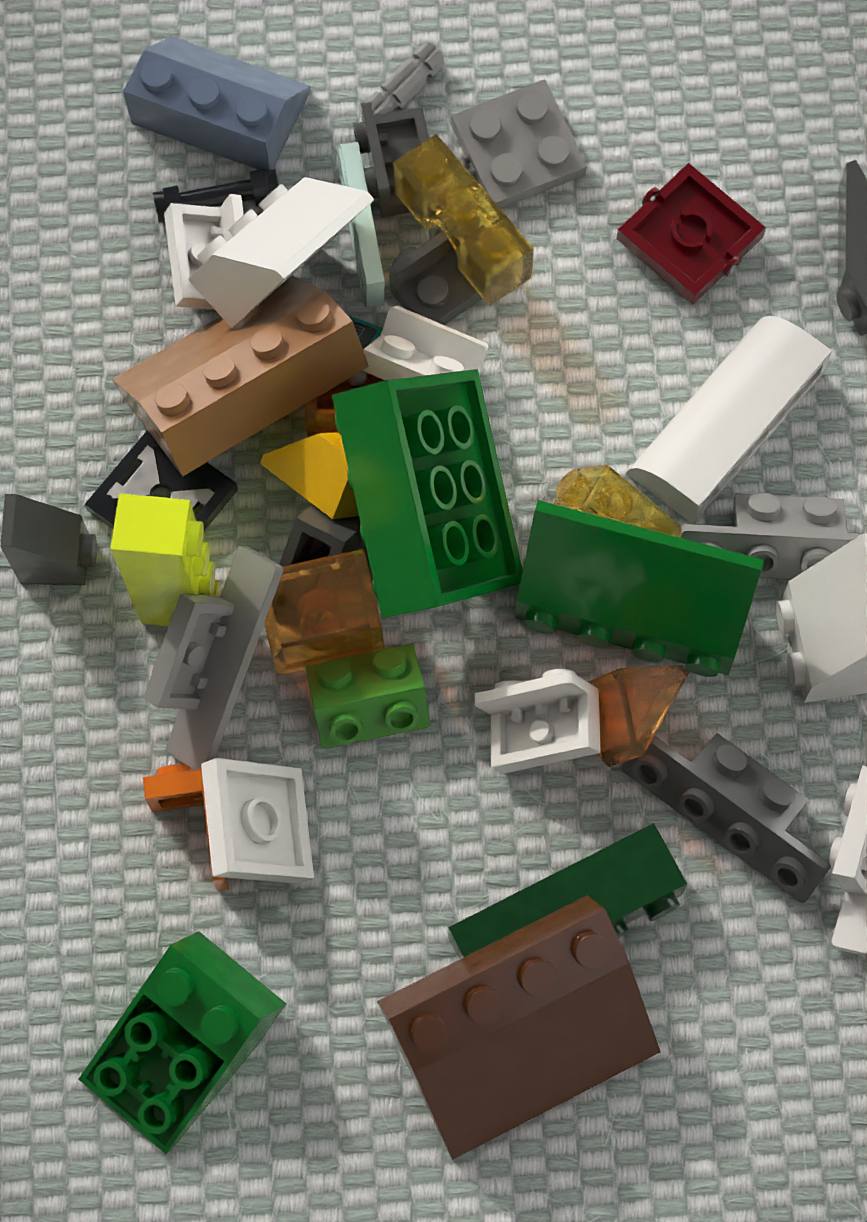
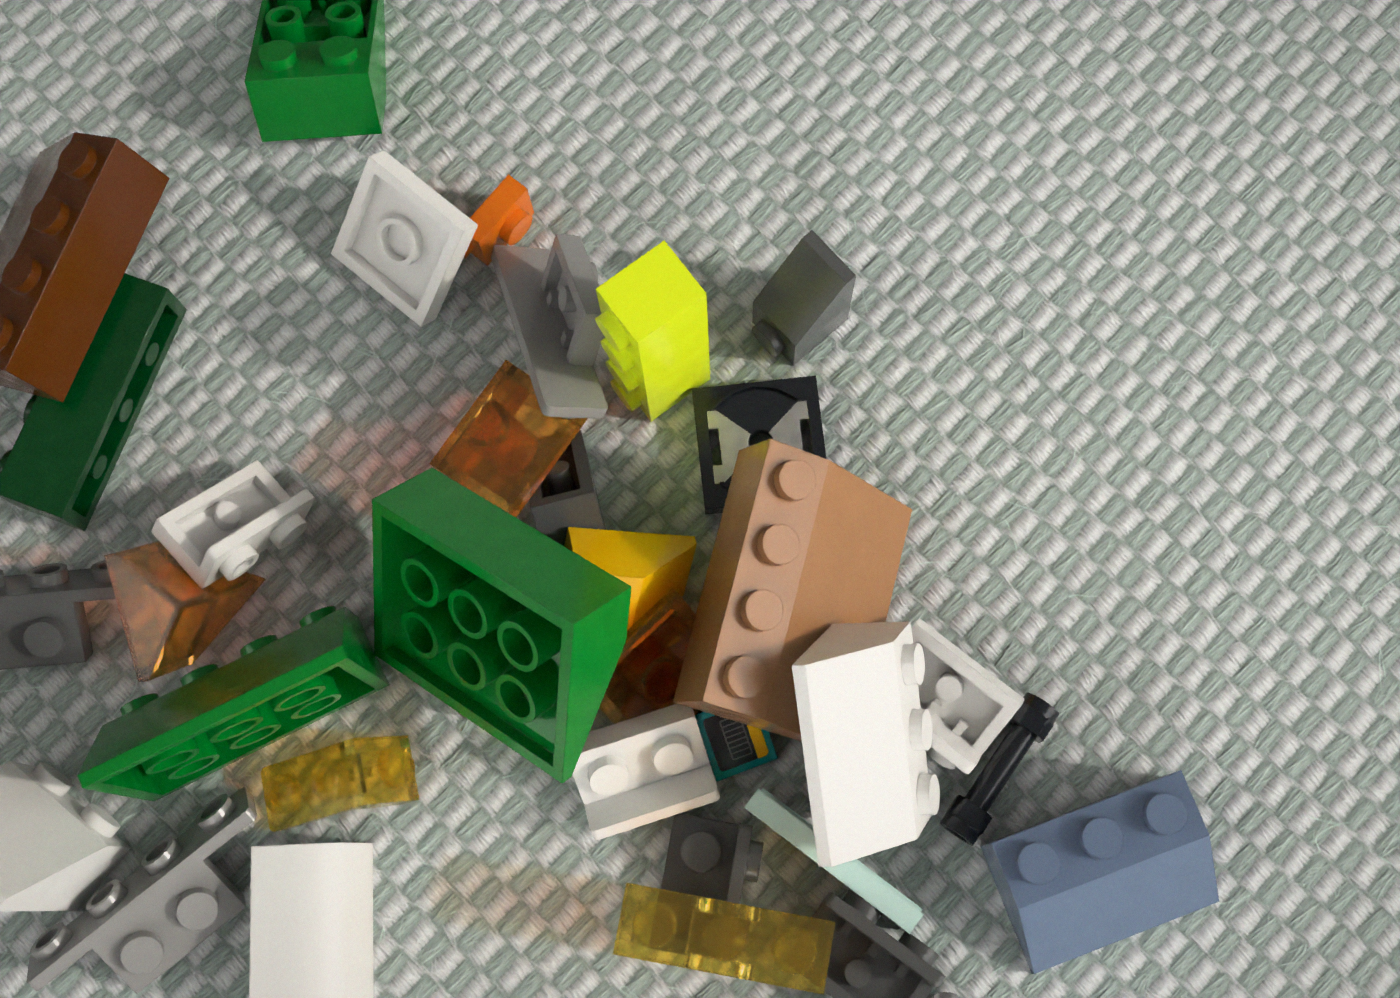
camera: 140 degrees right, 5 degrees up
(368, 696) = (414, 425): bright green bracket -> none

